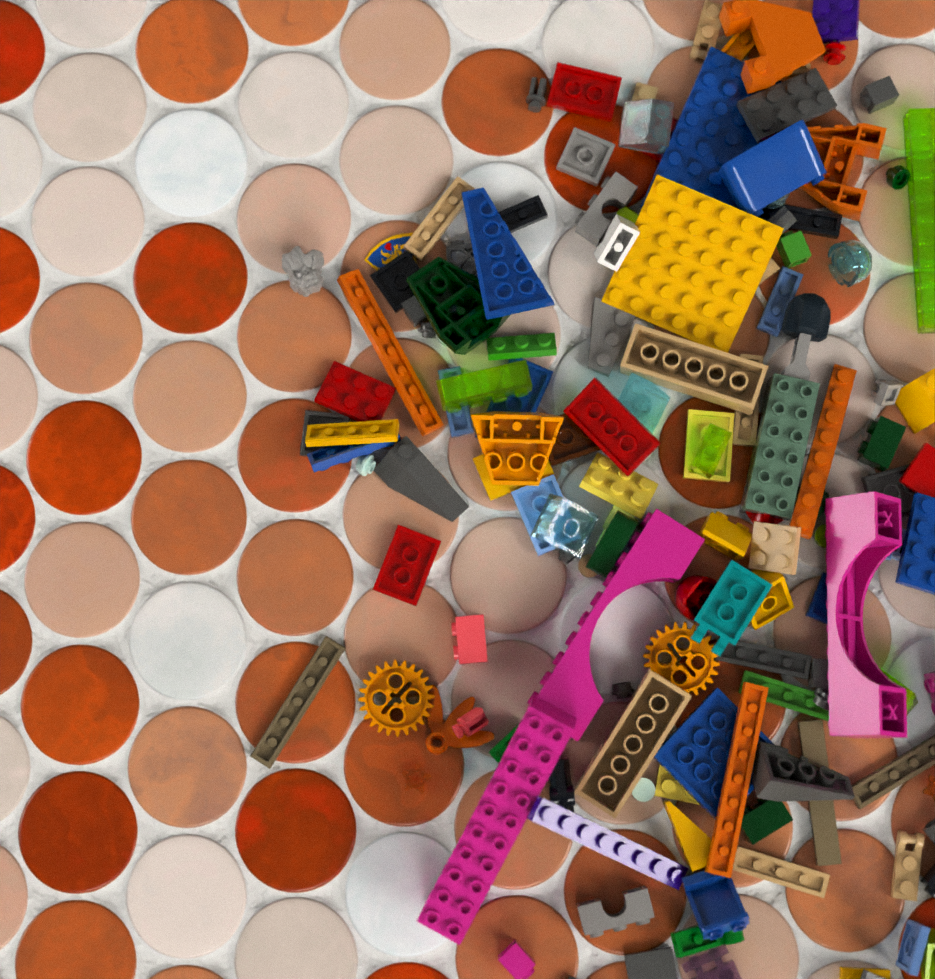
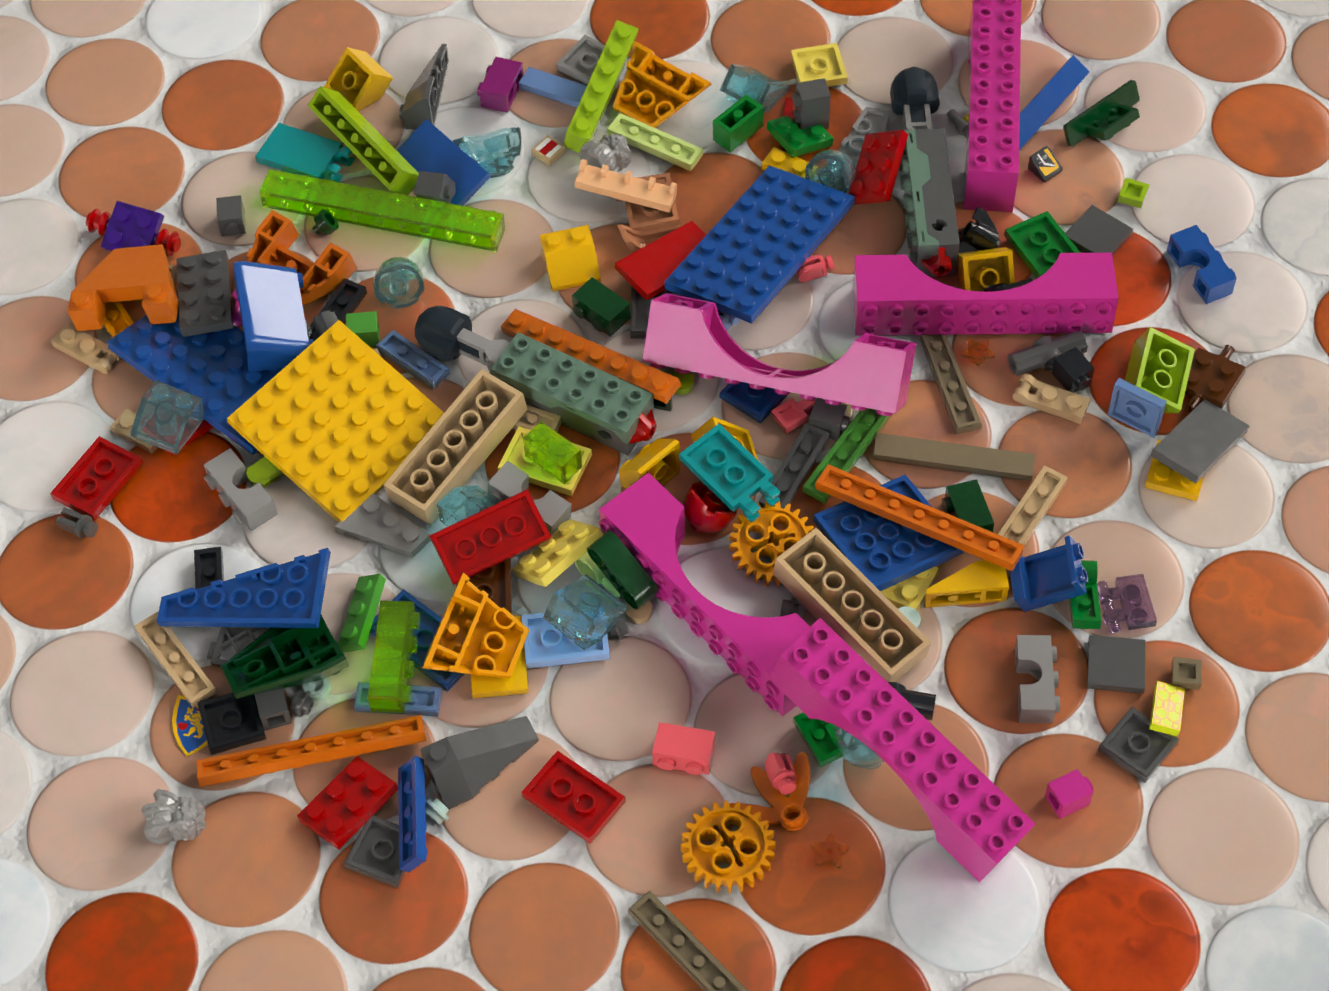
camera: 75 degrees left, 25 degrees down
(352, 433) = (394, 808): yellow tile -> none
(585, 156) = (171, 495): light grey plate -> none
(607, 842) = (954, 646): plate -> none
(616, 242) = (284, 482): white brick -> none
(667, 424) = (512, 480): none -> light grey arch
(775, 547) = (679, 415): tan plate -> none
(788, 778) = (933, 468): dark grey wedge -> none
(816, 639) = (792, 414): none -> coral plate
(821, 699) = (856, 419): dark grey plate -> none
(887, 392) = (549, 286): light grey tile -> none

